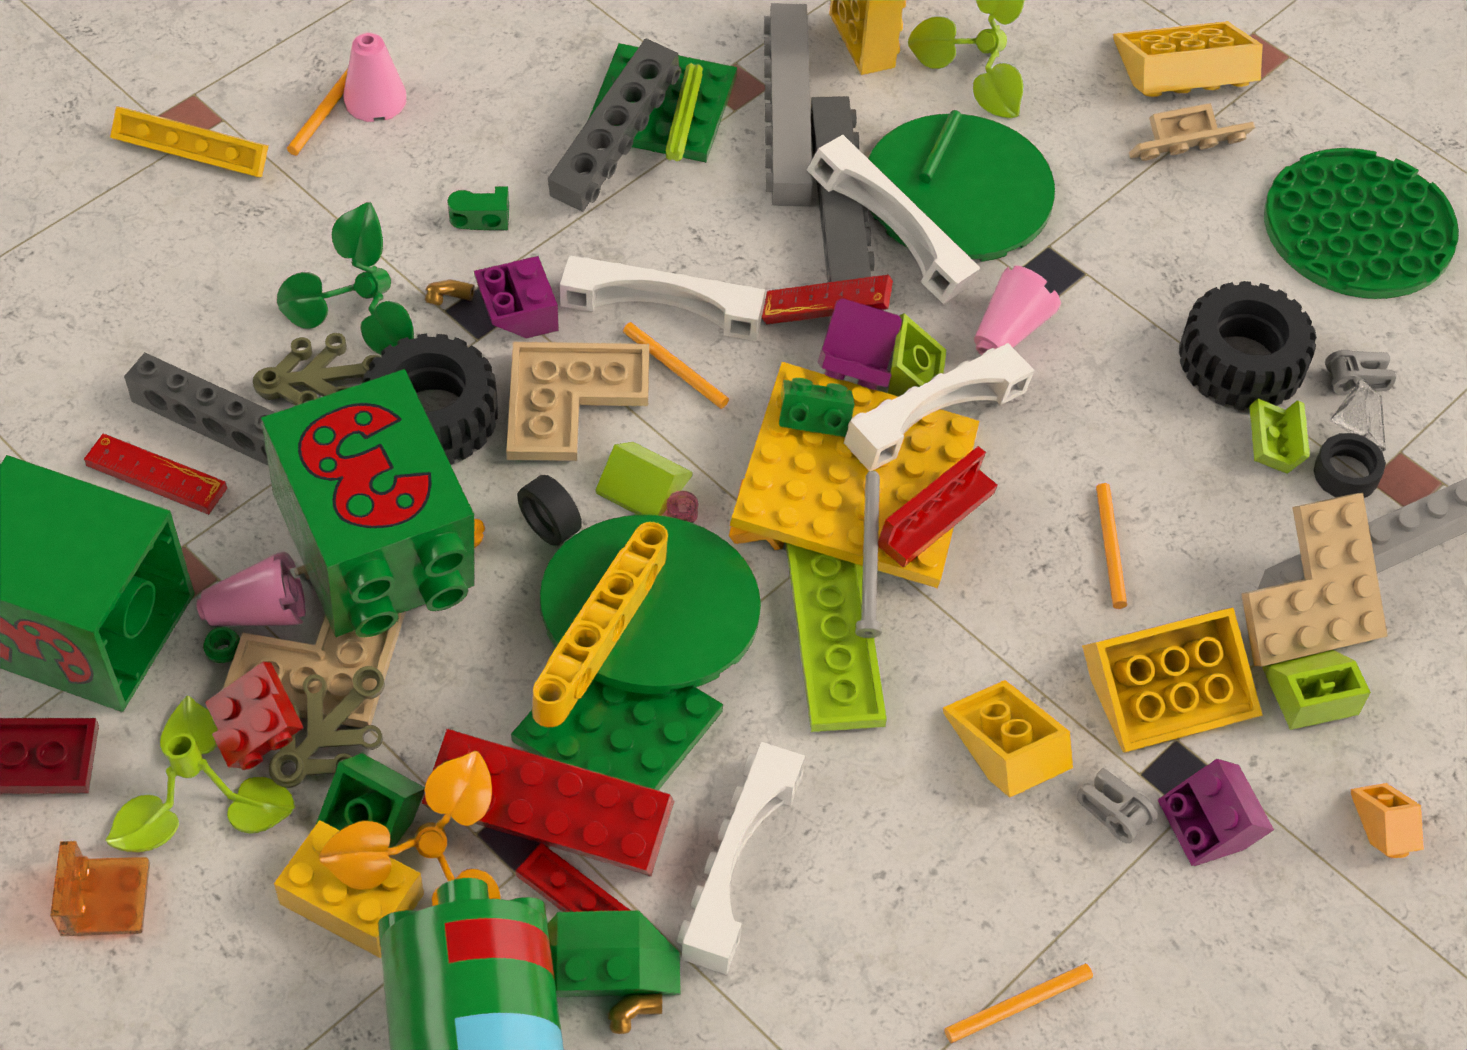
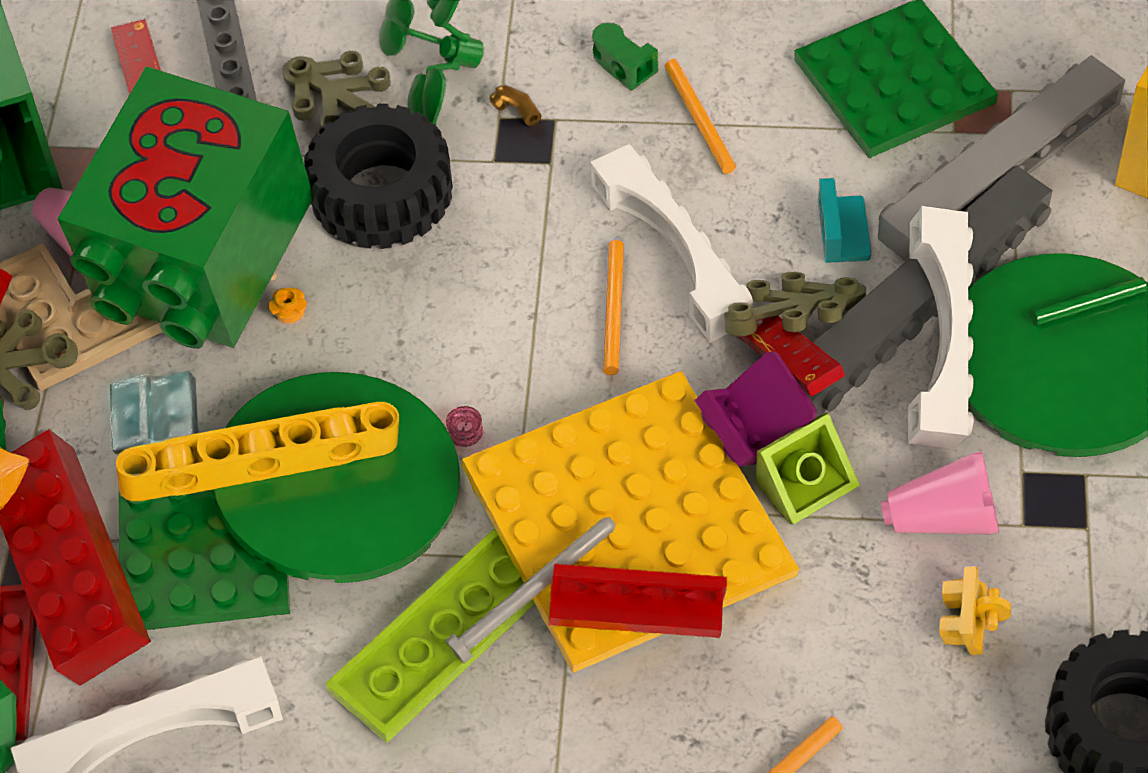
camera: 55 degrees right, 0 degrees up
(217, 638) = (24, 238): green plate -> none
(471, 673) = (152, 410): none -> clear light blue slope
(519, 297) = (551, 149): magenta slope -> none
(549, 510) = (350, 335): black tyre -> none
(555, 379) = (501, 239): tan plate -> none
(575, 212) = (700, 116): none -> light orange bar
(640, 479) = (466, 371): lime slope -> none
(642, 82) = (810, 61): dark grey brick -> none
(684, 112) = (886, 95): lime axle -> none
(744, 211) = (842, 225): none -> teal panel
(801, 249) = (793, 305): none -> olive plant
(816, 407) = (645, 427): green bracket -> none
(994, 376) = (844, 534): white arch -> none
(1100, 361) = (979, 611): none -> yellow hips

